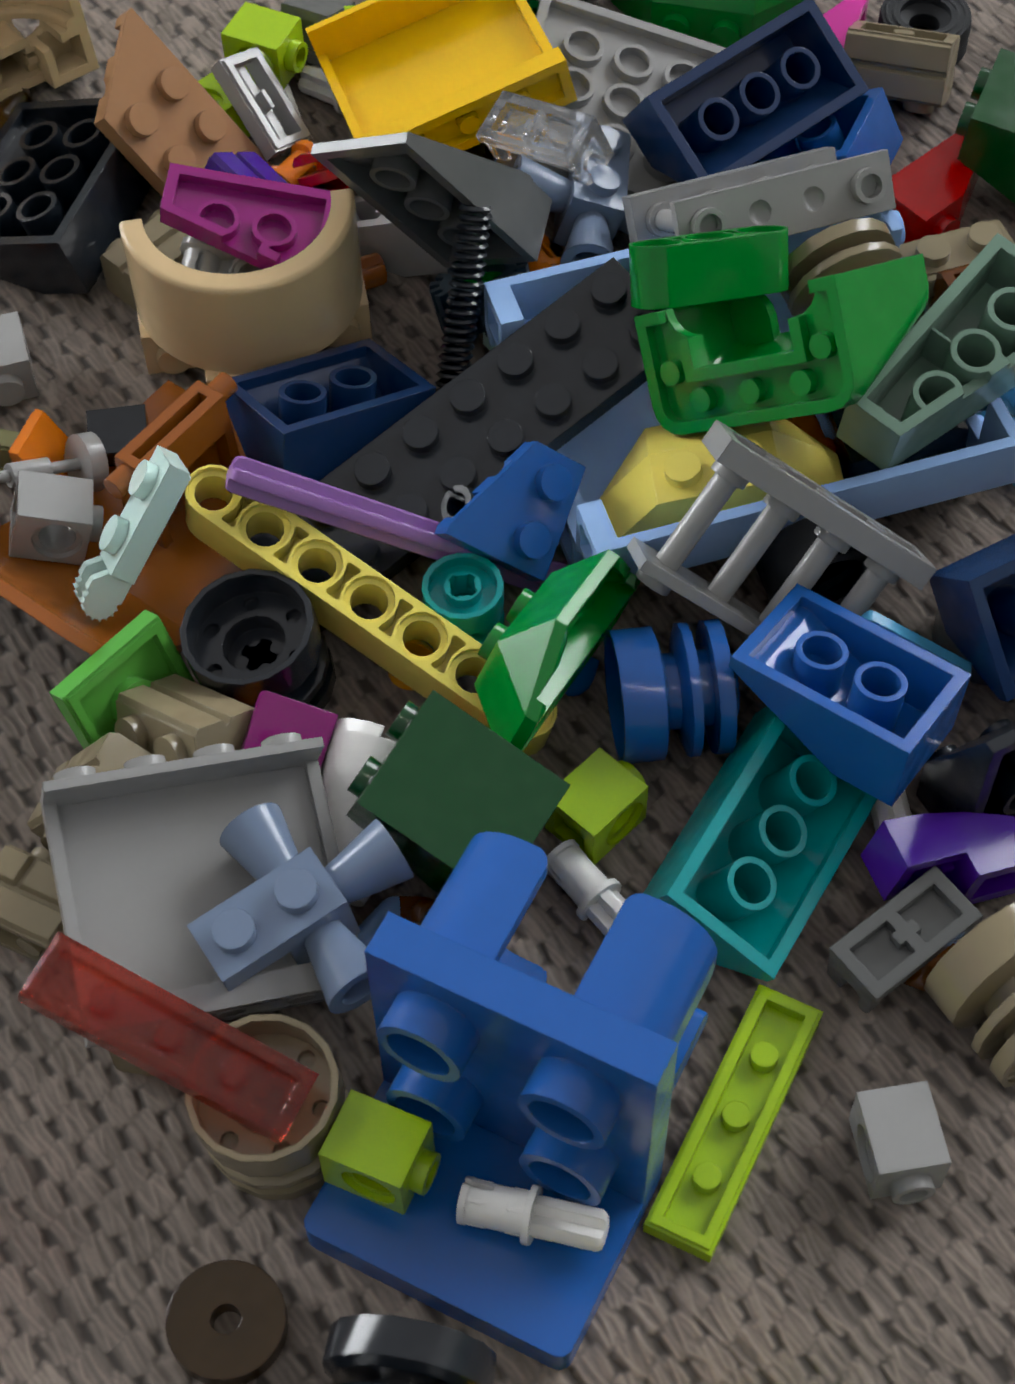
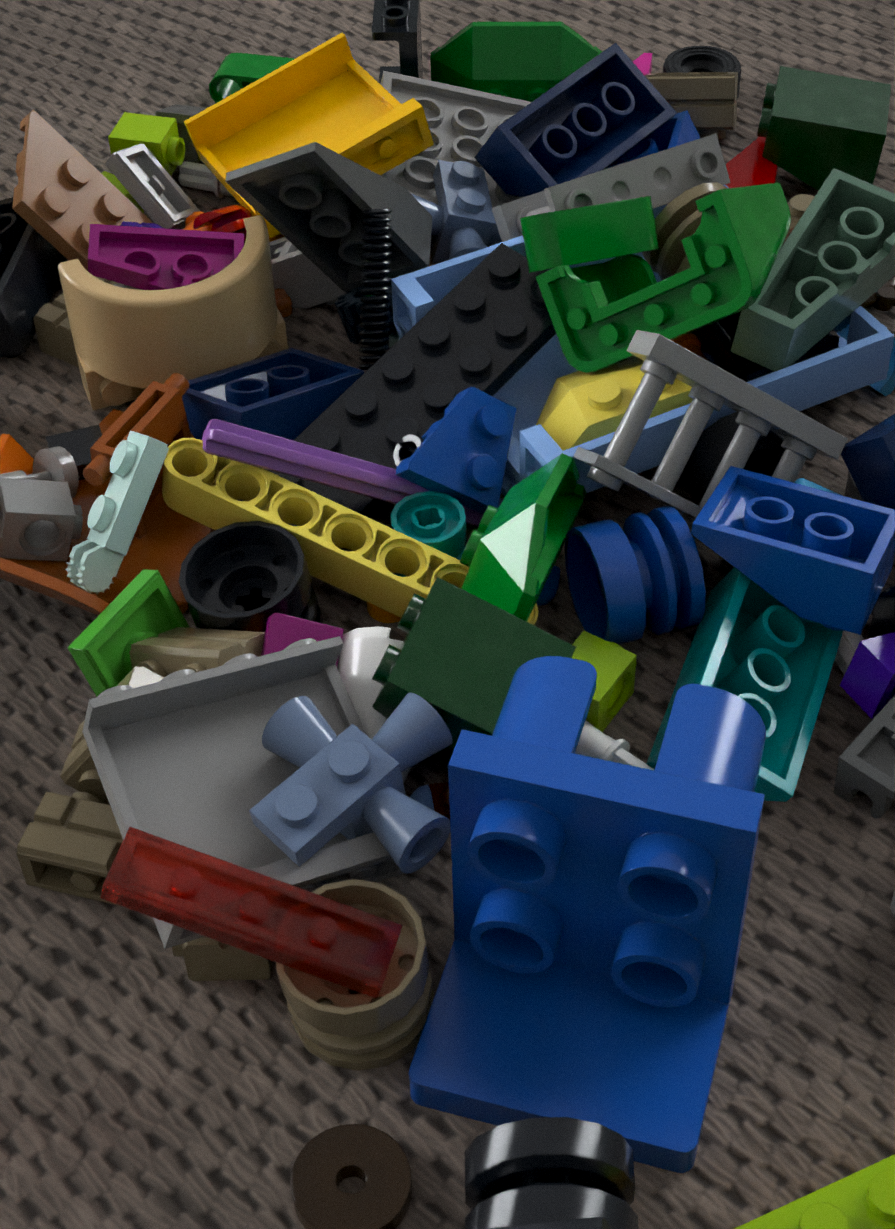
camera: 10 degrees left, 10 degrees down
(379, 1152) = (471, 994): lime brick -> none
(531, 1215) = (631, 1025): white axle -> none
(545, 134) = (421, 163): clear hinge -> none
(733, 1123) = (786, 931): lime tile -> none

